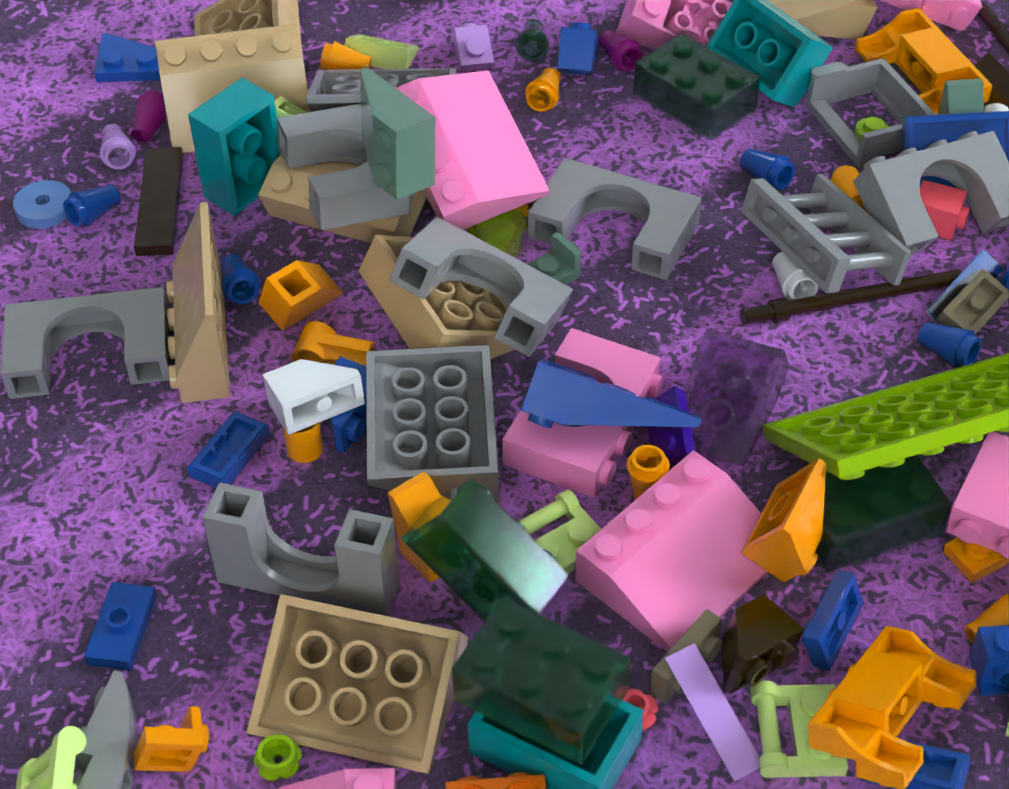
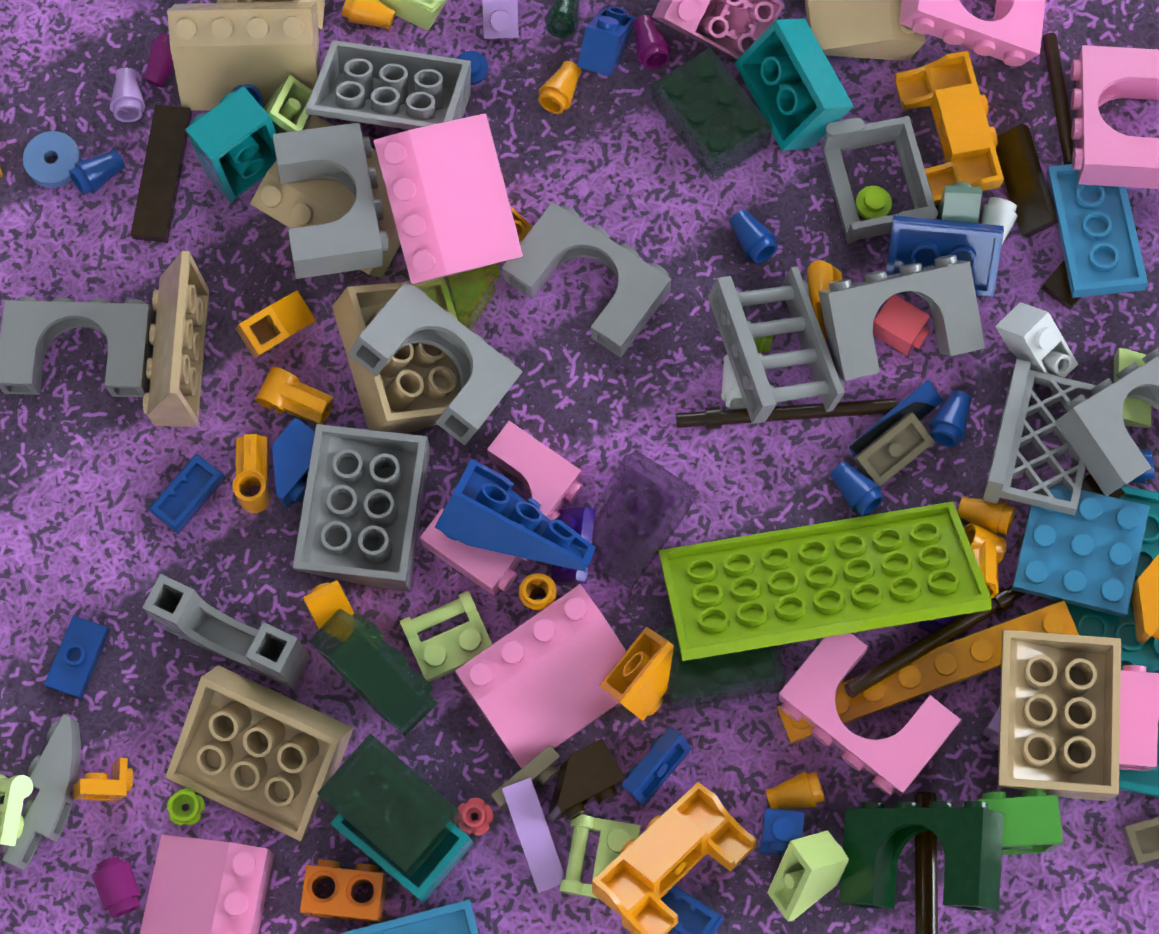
camera: 15 degrees right, 25 degrees up
(238, 280) = (220, 298): blue cone -> none
(311, 392) = (257, 466): white slope -> none
(396, 137) = (372, 220): sand green slope -> none
(562, 260) = (516, 329): sand green bracket -> none

